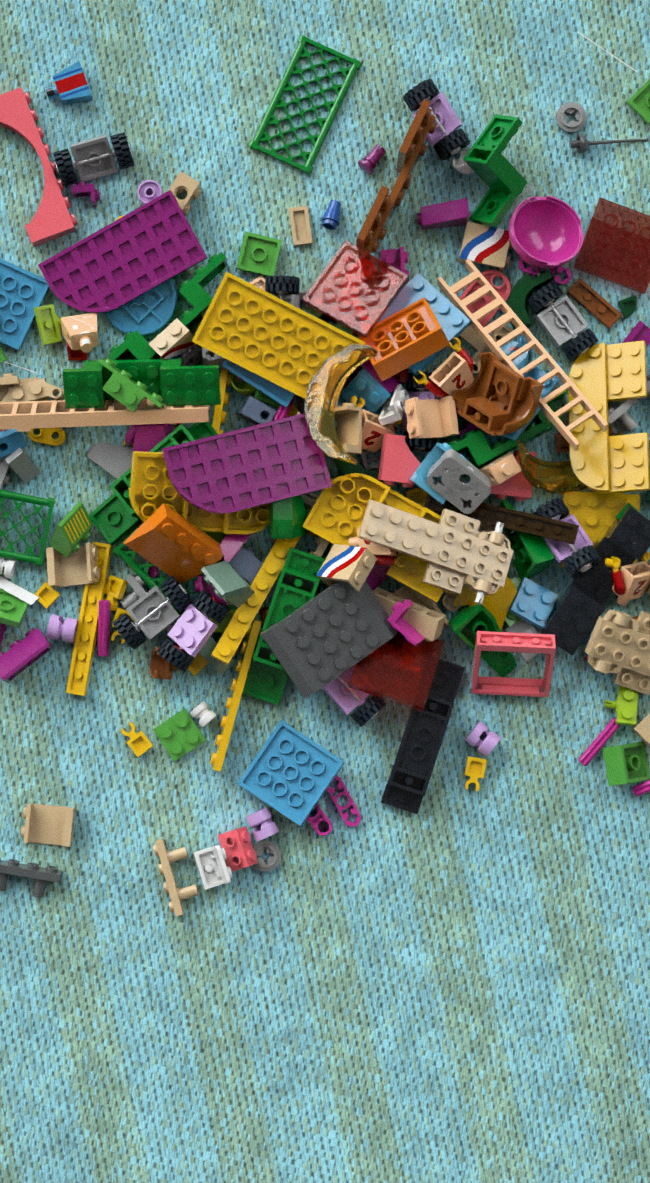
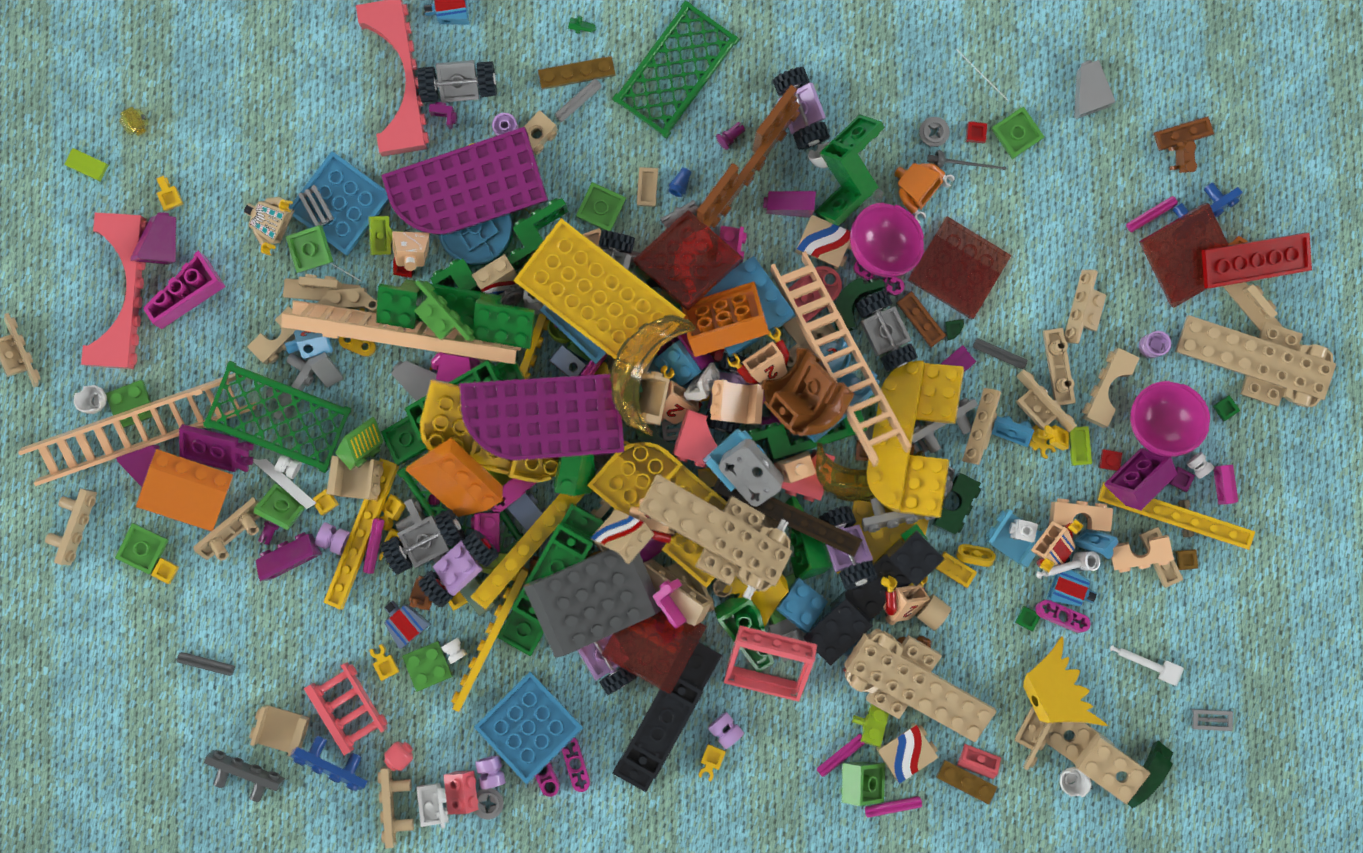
camera: 10 degrees right, 0 degrees up
(90, 795) = (335, 725): none -> coral fence
(99, 849) = (319, 766): none -> blue plate
(149, 697) = (404, 623): none -> torso
(169, 826) = (398, 756): none -> coral head
(201, 79) = (577, 25): none -> green piece
(208, 127) = (576, 72): none -> pearl gold plate
(215, 154) = (578, 100): none -> light grey axle
(227, 583) = (501, 528): sand green slope -> none
(329, 253) = (669, 219): none -> light grey pin
(567, 171) = (919, 185): none -> orange torso
(602, 503) = (890, 520): none -> light grey plate
(612, 109) = (976, 132): none -> red plate

